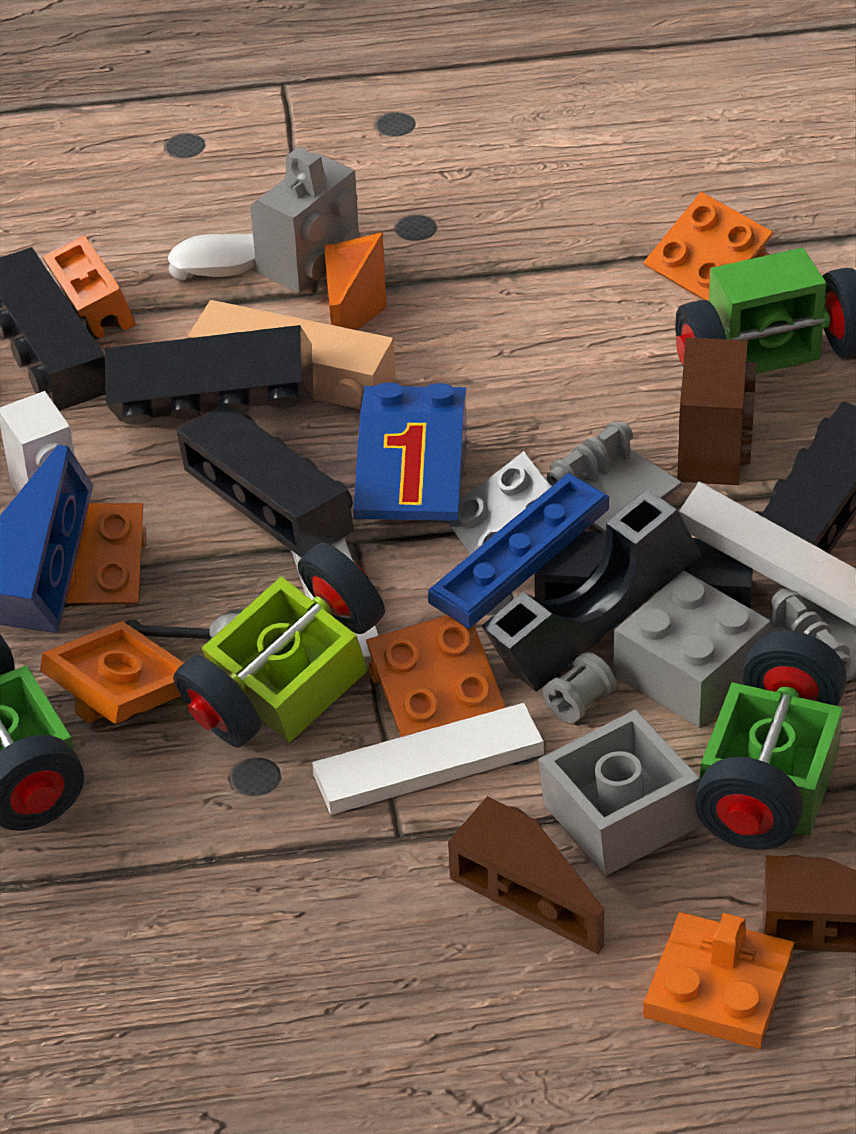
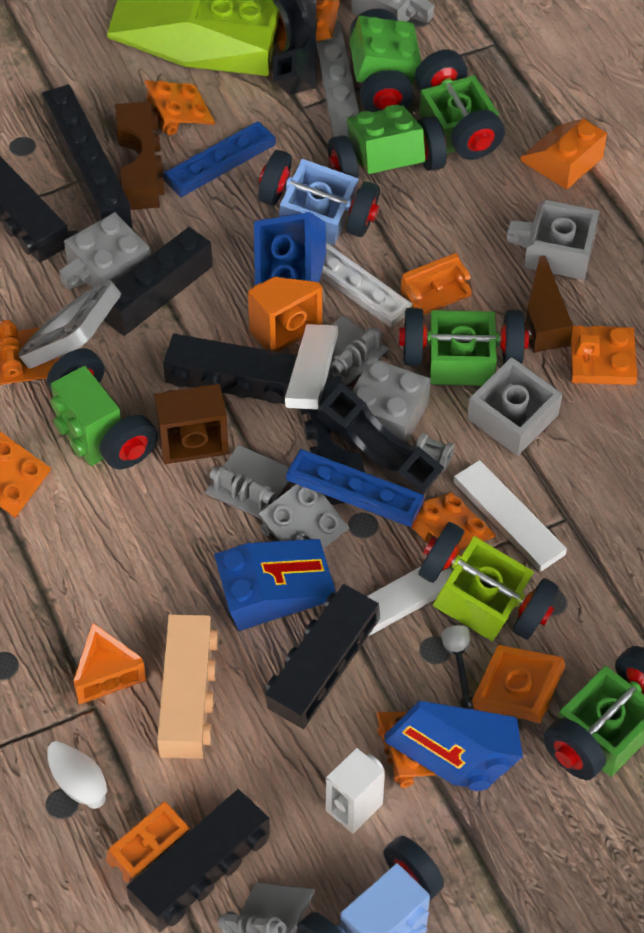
camera: 110 degrees left, 10 degrees up
(206, 371) = (239, 714): black brick -> none
(302, 215) = (50, 705): light grey hinge -> none
(520, 867) = (575, 445): reddish brown slope -> none

